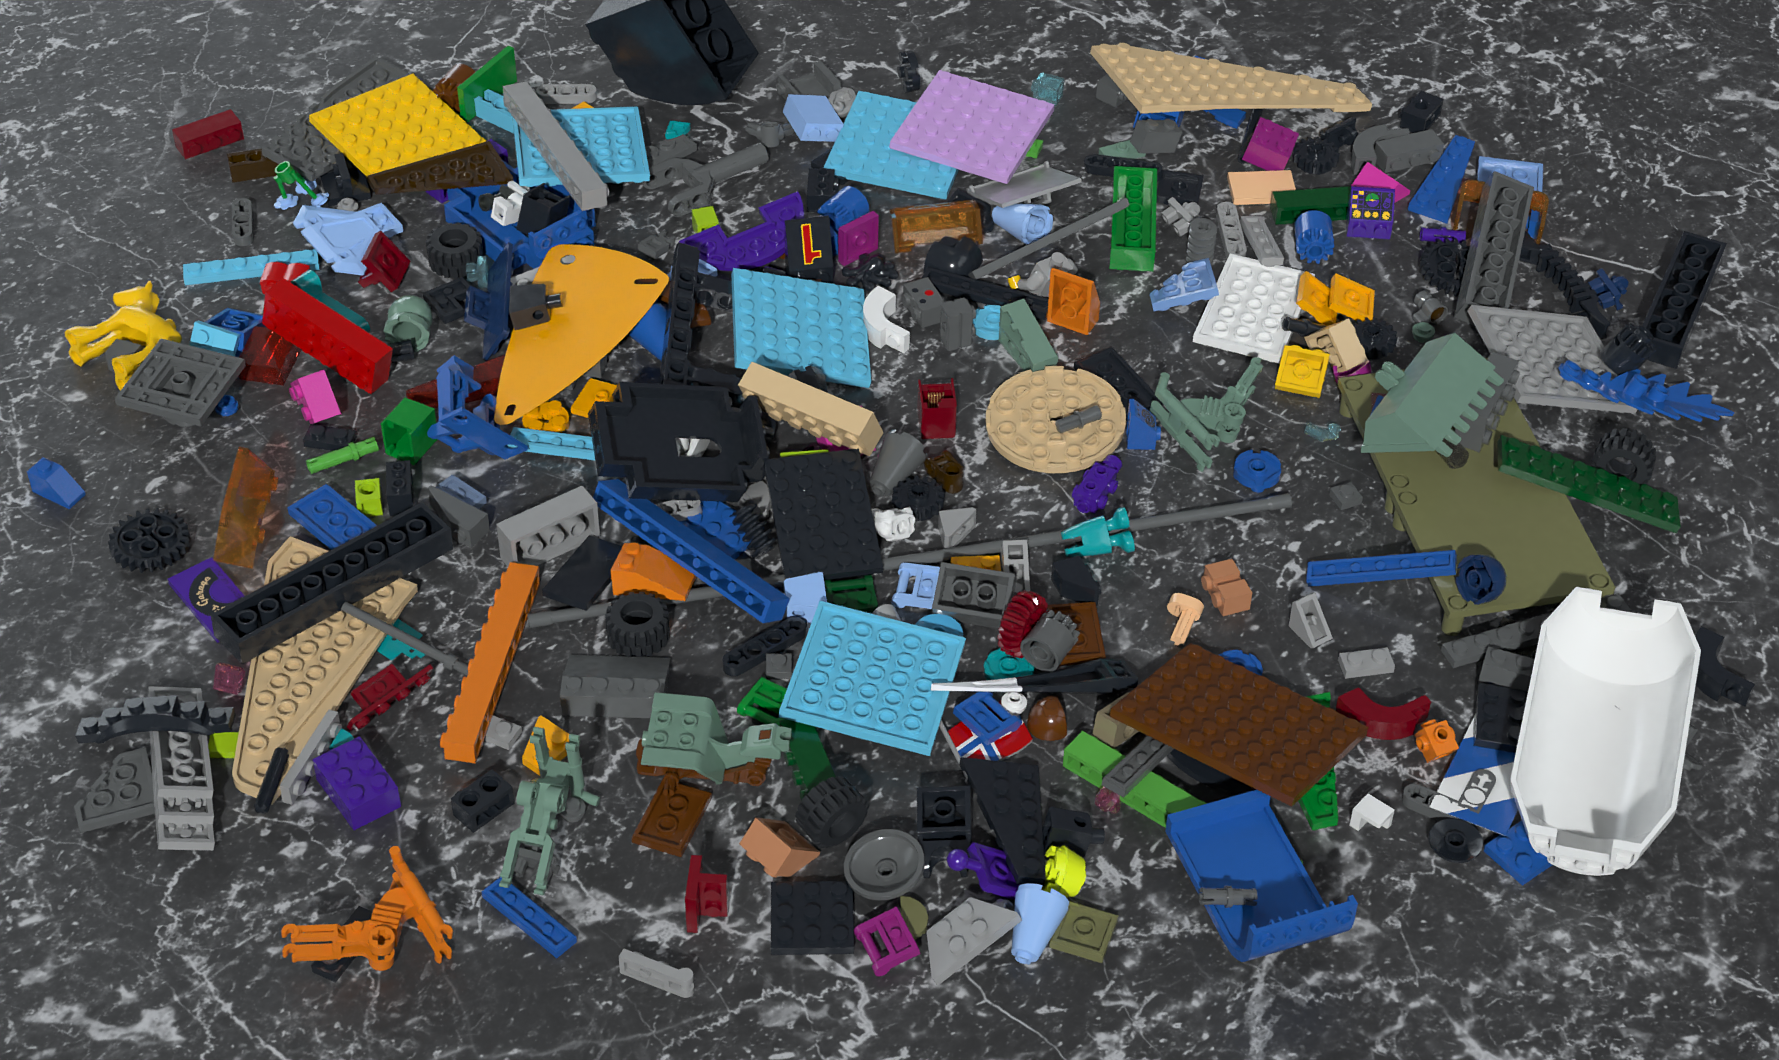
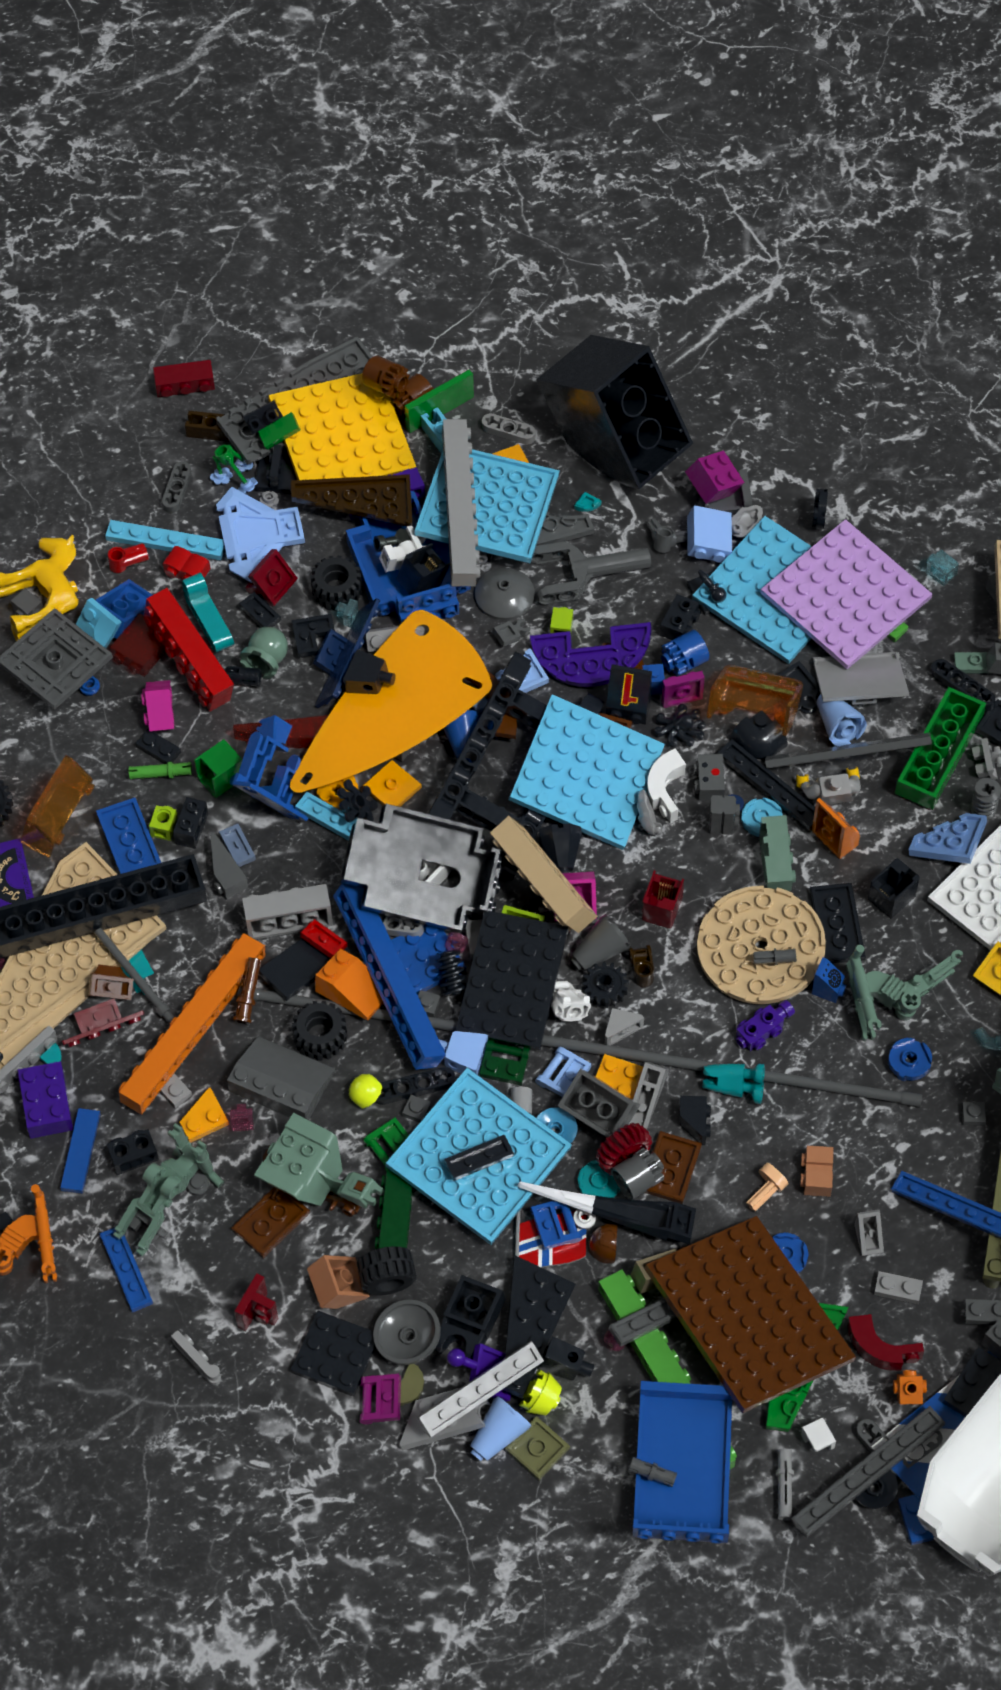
camera: 25 degrees right, 15 degrees up
(211, 290) = (121, 558): none -> red piece
(313, 131) = (262, 416): none -> black hips
(335, 139) = (279, 430): none -> green tile
(379, 652) = (110, 983): none -> reddish brown slope
(380, 294) = (259, 611): none -> black plate
(419, 822) = (80, 1151): none -> blue tile
(426, 67) = (385, 376): none -> reddish brown gear
(542, 622) = (246, 1000): none -> reddish brown pin
(571, 419) = (356, 802): none -> black animal
(592, 731) = (241, 1118): none -> clear pink tile
(599, 542) = (323, 938): none -> red plate
(632, 219) = (508, 601): none -> dark grey dish
(715, 663) = (365, 1090): none -> neon yellow hair
(742, 500) = (457, 940): none -> clear pink tile
(795, 69) = (714, 477): none -> magenta brick
(848, 157) = (718, 593): none -> black bar
(877, 673) = (478, 1157): none -> black plate
(879, 348) = (646, 814): none -> light grey arm
(999, 882) = (480, 1389): none -> plate
(1158, 335) = (893, 888): none -> black piece
(1358, 864) = (784, 1476): none -> light grey pin
(1441, 829) = (867, 1471): none -> dark grey tile

